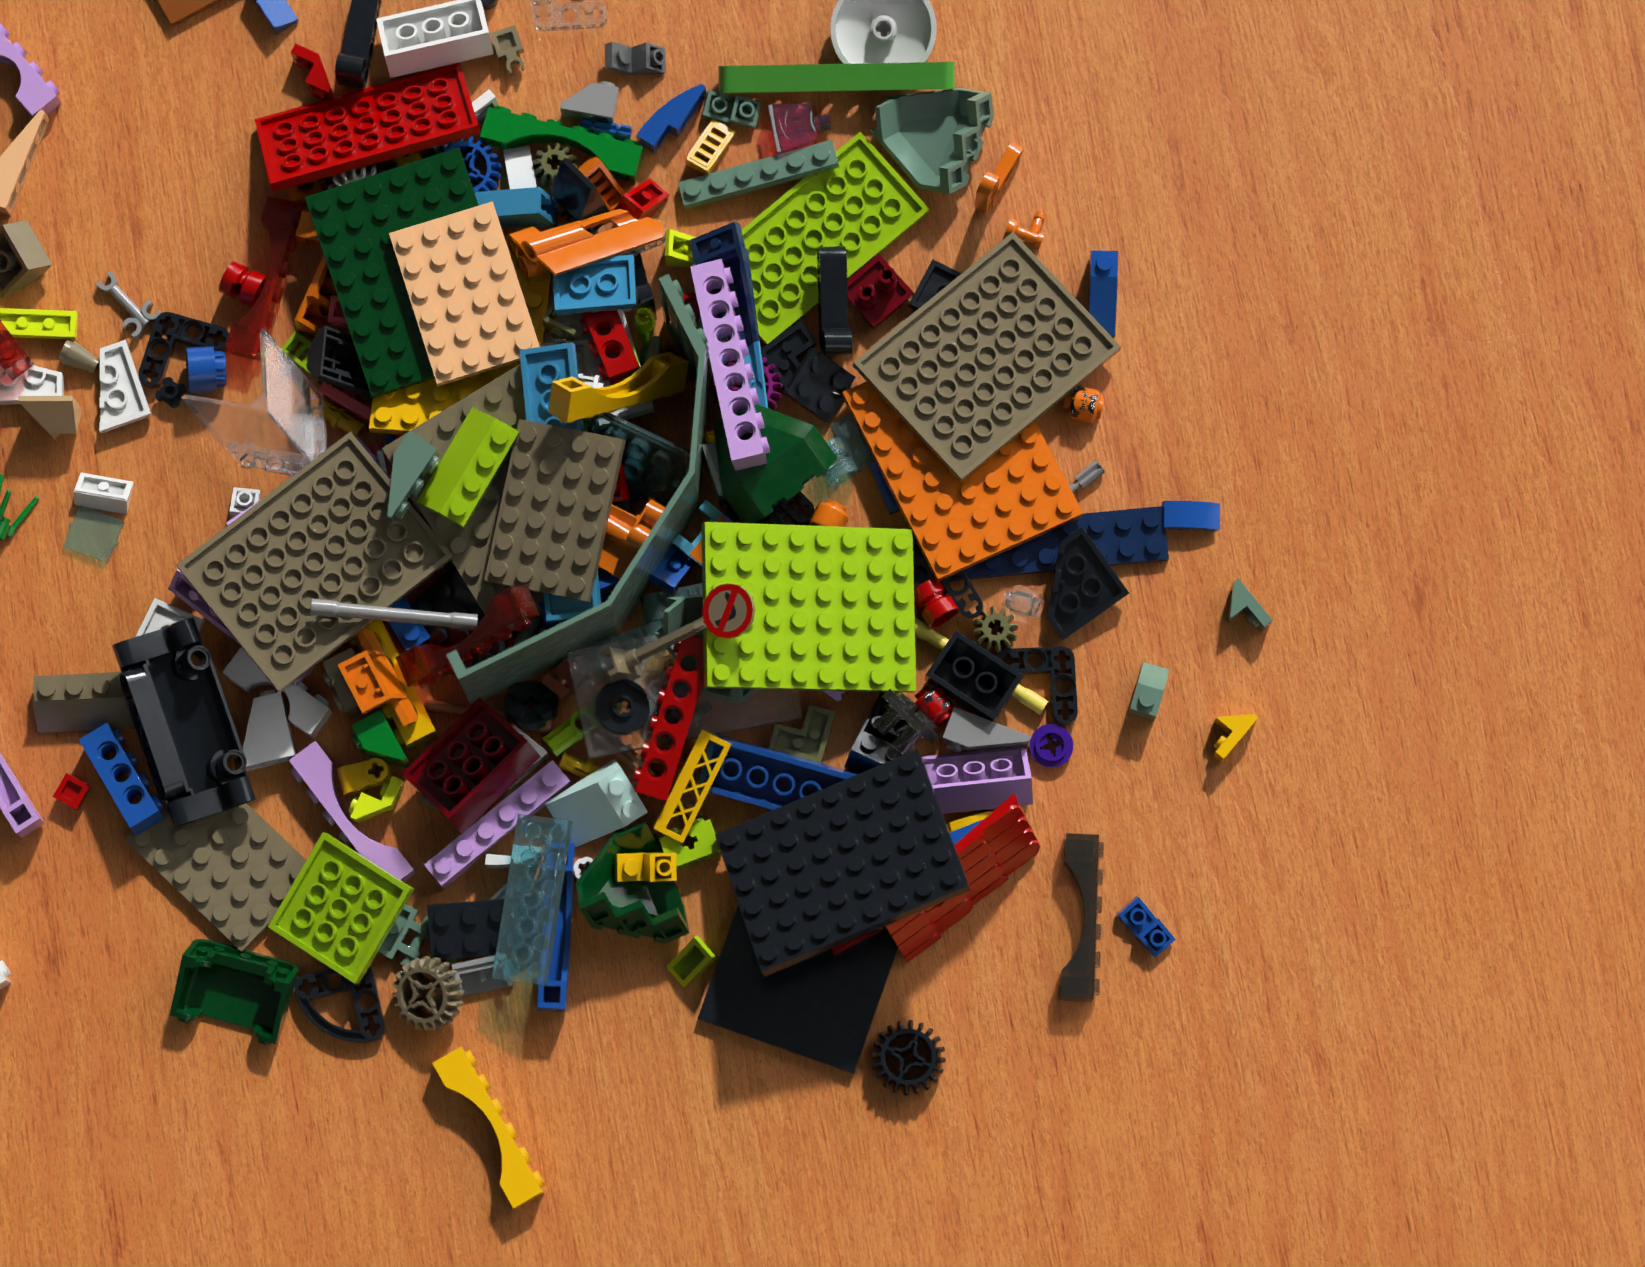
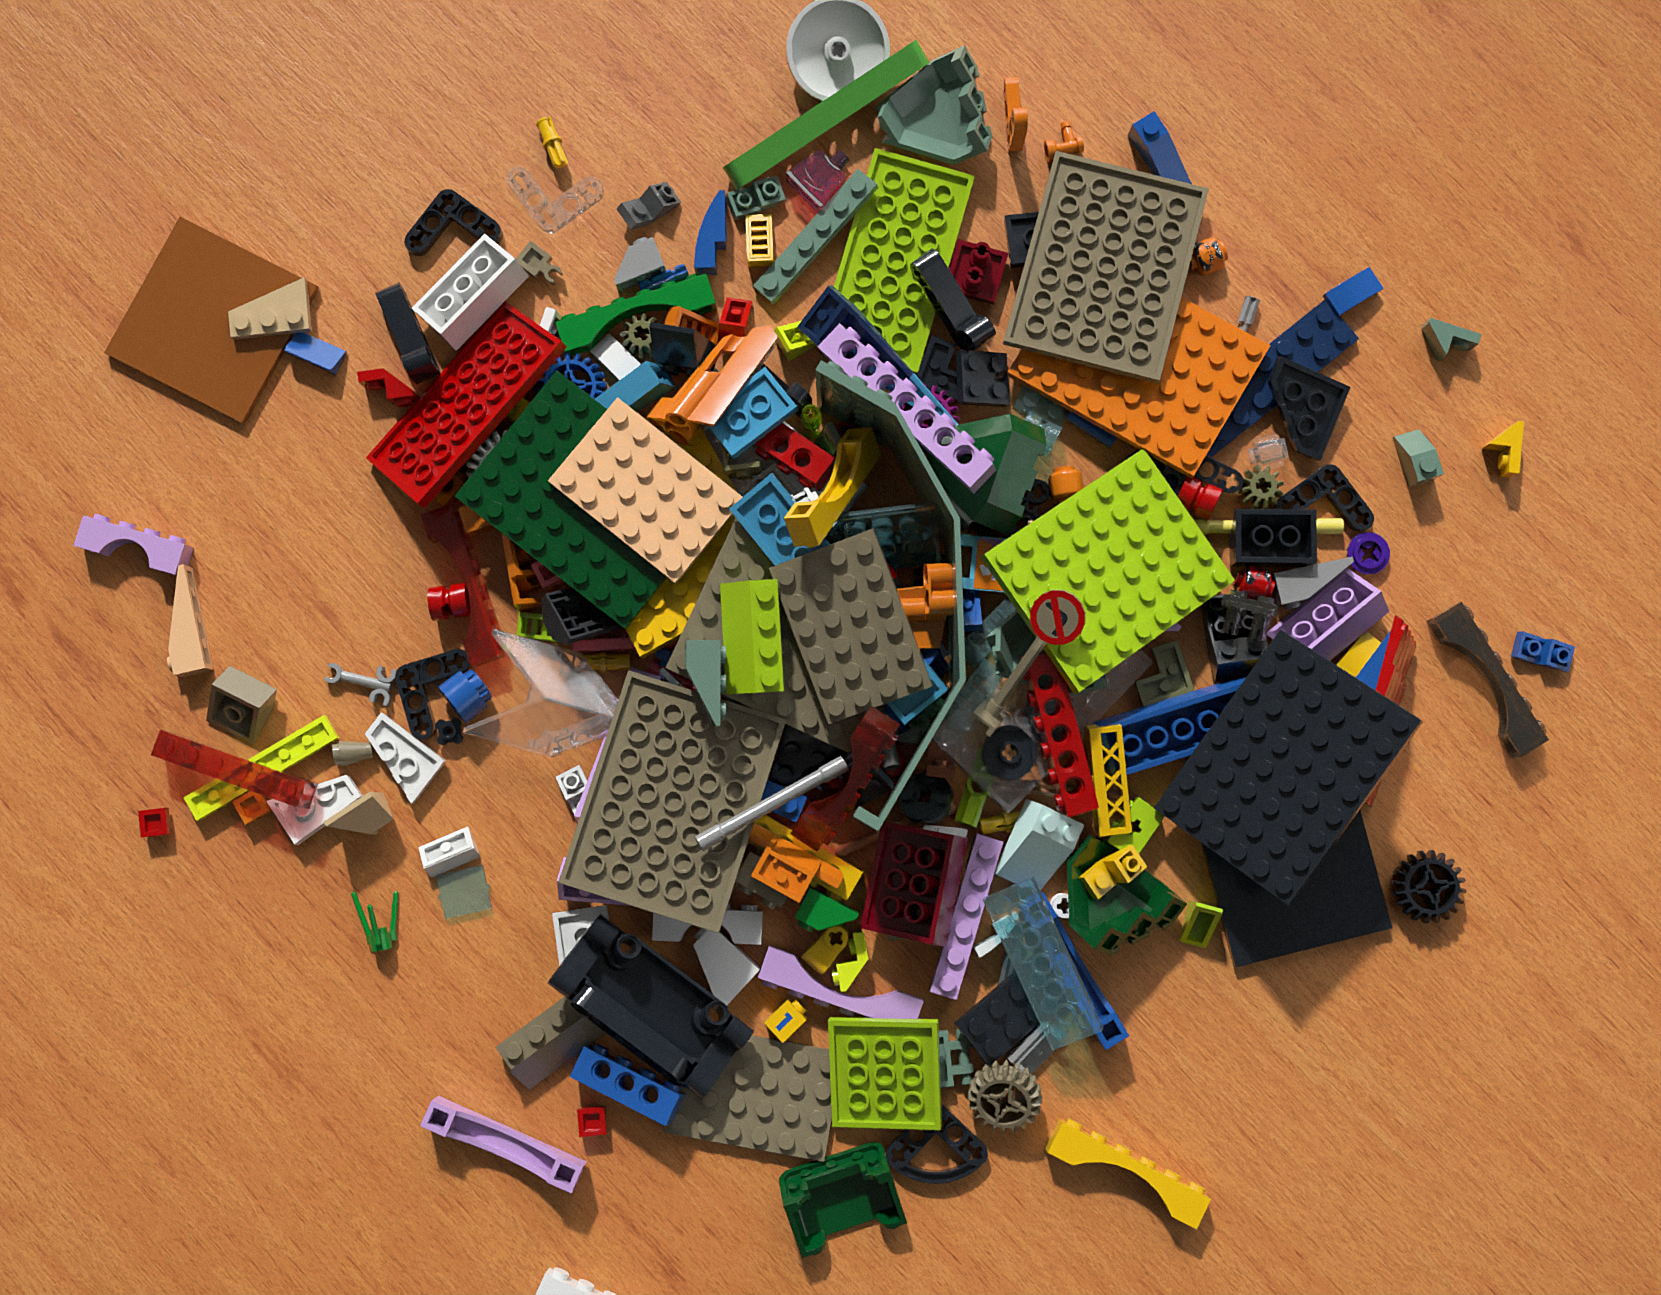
camera: 30 degrees left, 5 degrees up
(289, 812) = (786, 1019): none -> yellow brick

